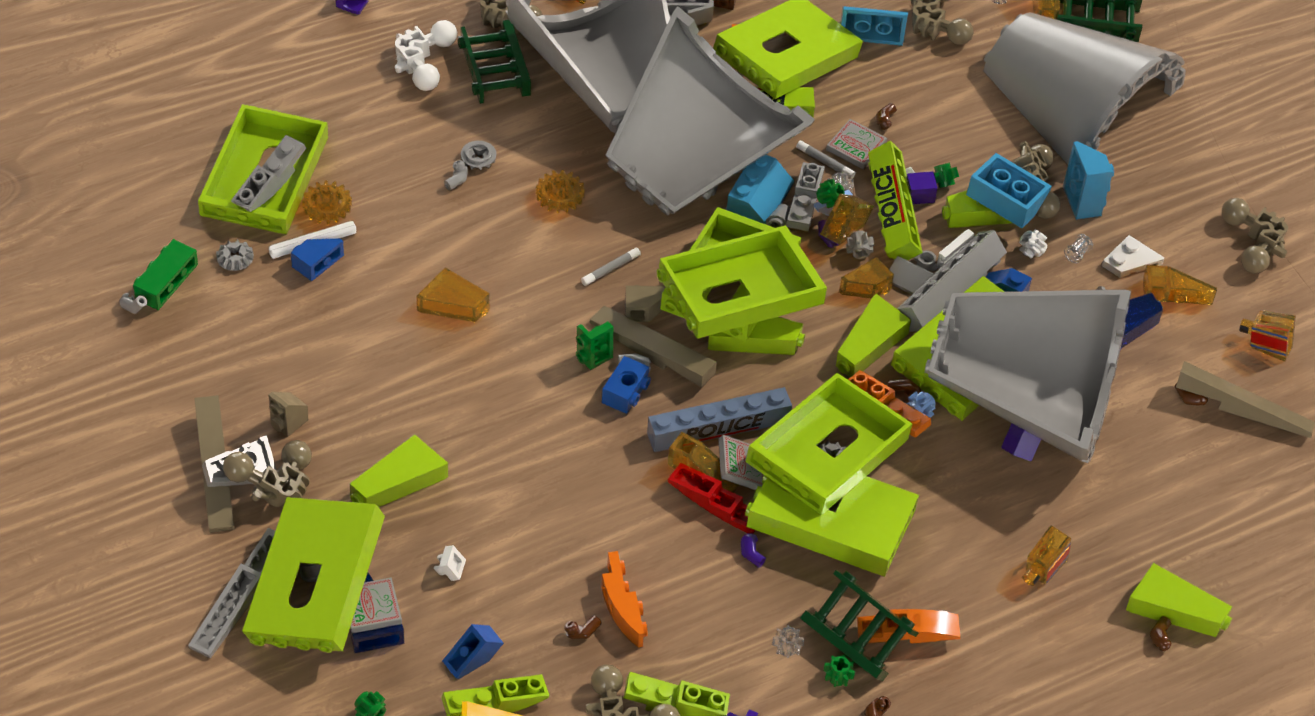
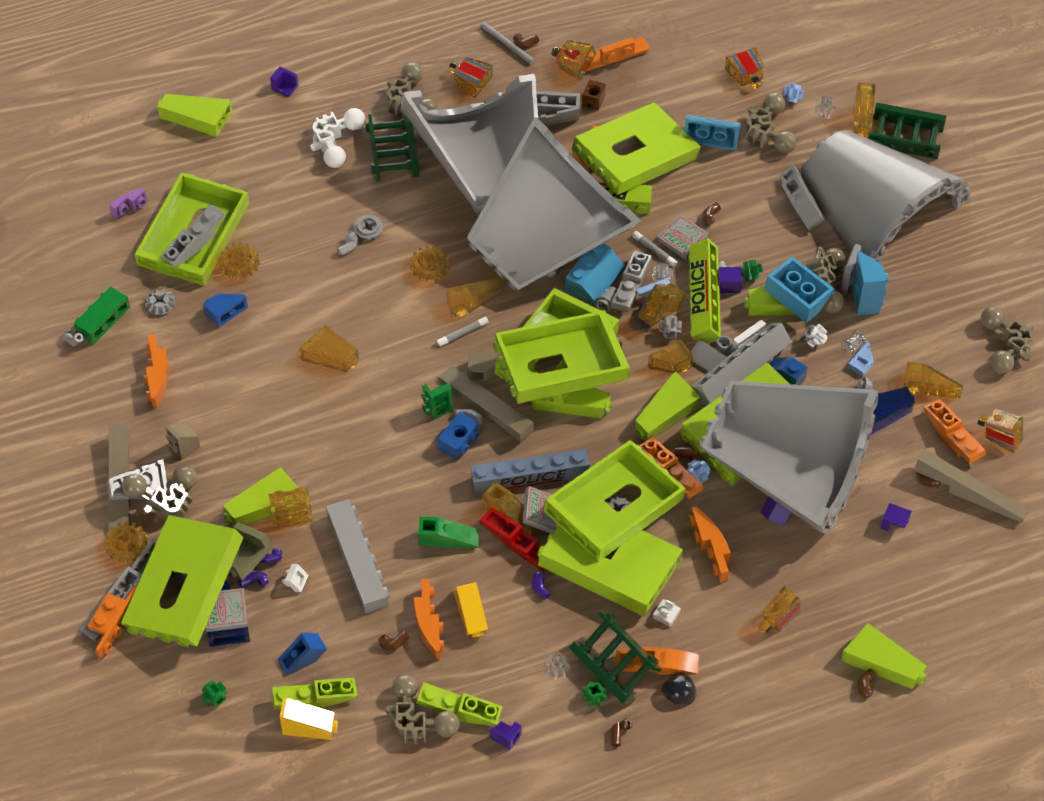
camera: 10 degrees right, 5 degrees up
(184, 141) = (131, 200): none -> medium lavender slope
(225, 630) = (108, 621): none -> orange bracket
(233, 536) = (117, 539): none -> clear yellow gear
(243, 335) = (156, 372): none -> orange slope
(248, 37) = (195, 112): none -> lime slope
(338, 231) = (238, 288): white axle -> none
(394, 535) = (250, 553): none -> olive panel
(397, 566) = (255, 576): none -> dark purple arm
(411, 543) = (274, 557): none -> dark purple arm
(434, 479) = (290, 507): none -> clear yellow plate
(523, 532) = (357, 556): none -> light grey brick
(613, 226) = (469, 297): none -> clear yellow slope
(627, 497) = (446, 533): none -> green slope
(673, 582) = (470, 609): none -> yellow slope
(829, 192) = (648, 280): green gear -> none
(909, 570) = (666, 612): none -> white tile
(940, 657) = (680, 689): none -> black hair
(950, 481) = (712, 539): none -> orange slope
(990, 91) = (800, 197): none -> light grey slope
(1062, 166) = (849, 269): none -> light grey tile
(1091, 269) = (861, 361): none -> light blue tile
(1131, 257) = (897, 352): white wing -> none
(1164, 439) = (895, 515): none -> dark purple panel
(1210, 341) = (952, 432): none -> orange slope

